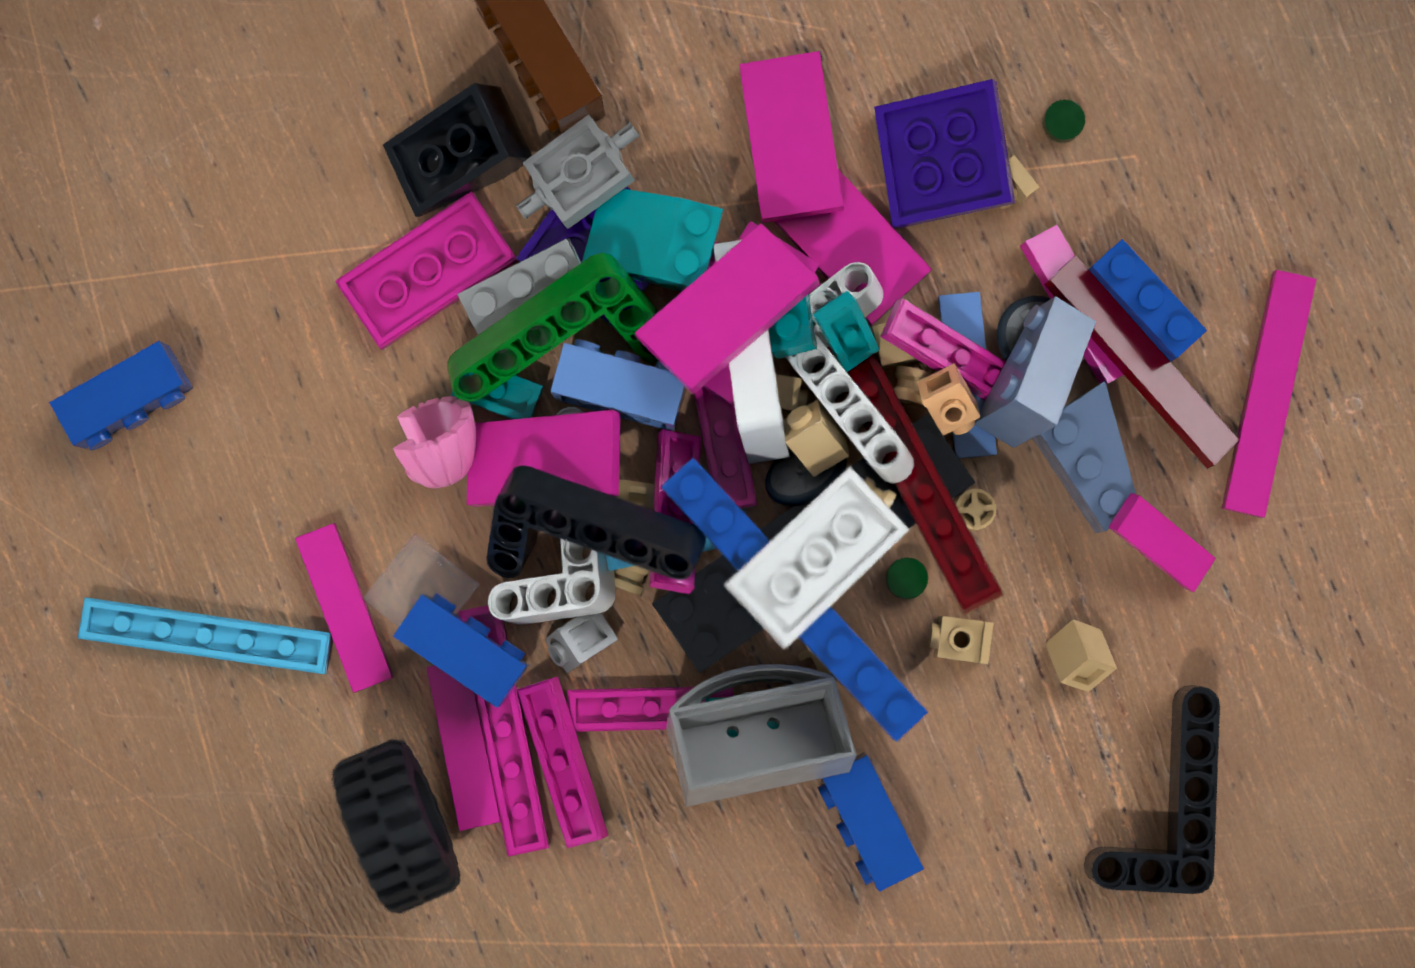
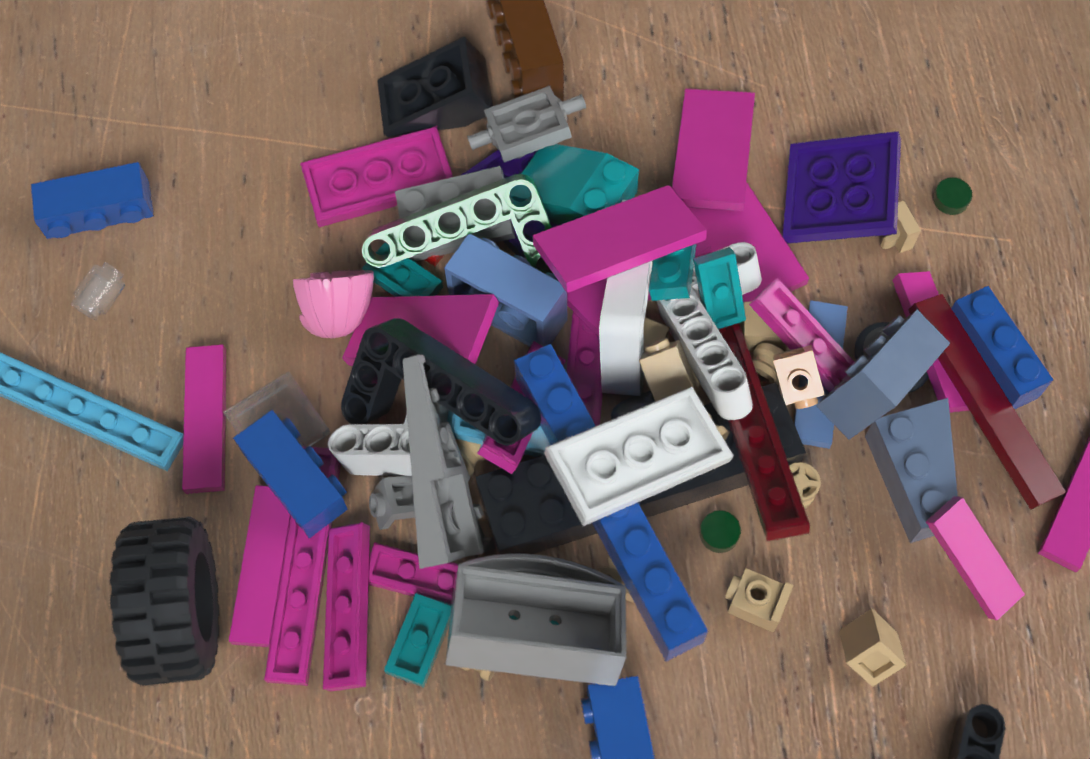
camera: 25 degrees right, 20 degrees down
(174, 501) = (98, 291): none -> clear brick
(630, 644) = (442, 499): none -> light grey wedge
(645, 775) = (419, 640): none -> teal plate

